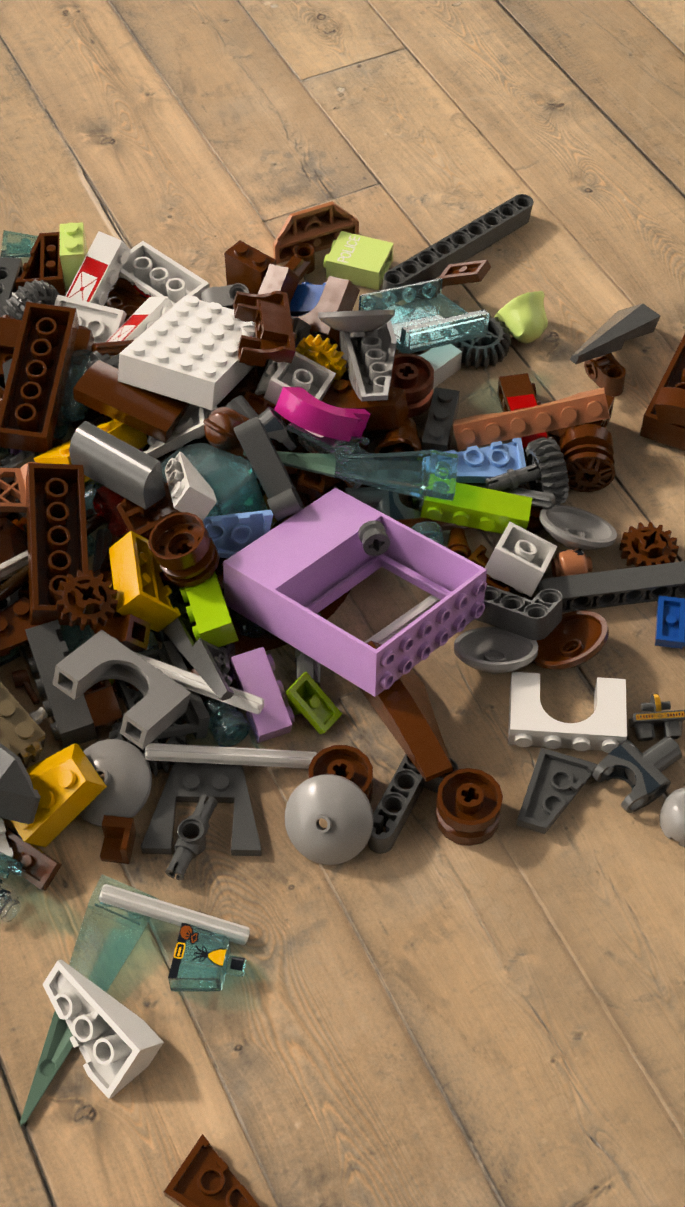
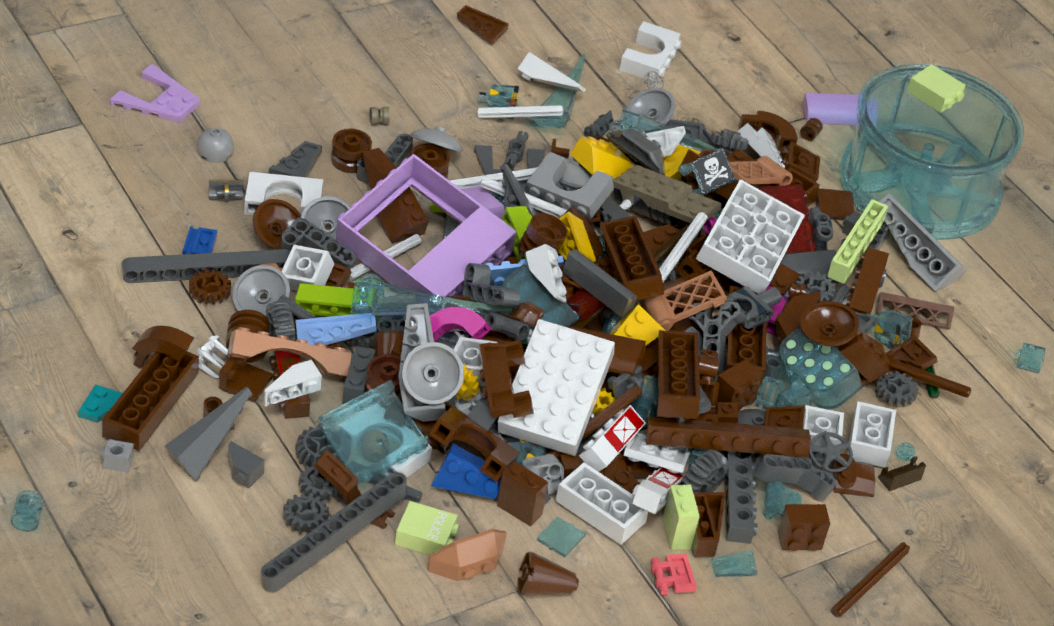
camera: 170 degrees right, 10 degrees down
(24, 924) = (599, 126): none -> dark grey hinge
(89, 611) = (602, 216): reddish brown gear -> none
(93, 224) = (679, 574): none -> coral plate
(210, 268) = (561, 536): none -> clear light blue piece
(236, 211) = (545, 577): none -> reddish brown cone
(303, 260) = (485, 521): reddish brown piece -> none
(374, 538) = (414, 238): dark grey wheel -> none
(423, 903) = (379, 115): none -> dark tan wheel
(478, 298) = (314, 482): none -> dark grey gear
(500, 275) = (305, 512): none -> dark grey gear
(513, 478) = (310, 312): dark grey pin -> none
(519, 383) = (295, 382): none -> white slope
(525, 316) = (285, 460): yellowish green piece -> none
(567, 319) = (244, 465): none -> dark grey slope
(637, 435) = (206, 353): none -> white piece
(639, 770) = (241, 164): dark grey connector -> none

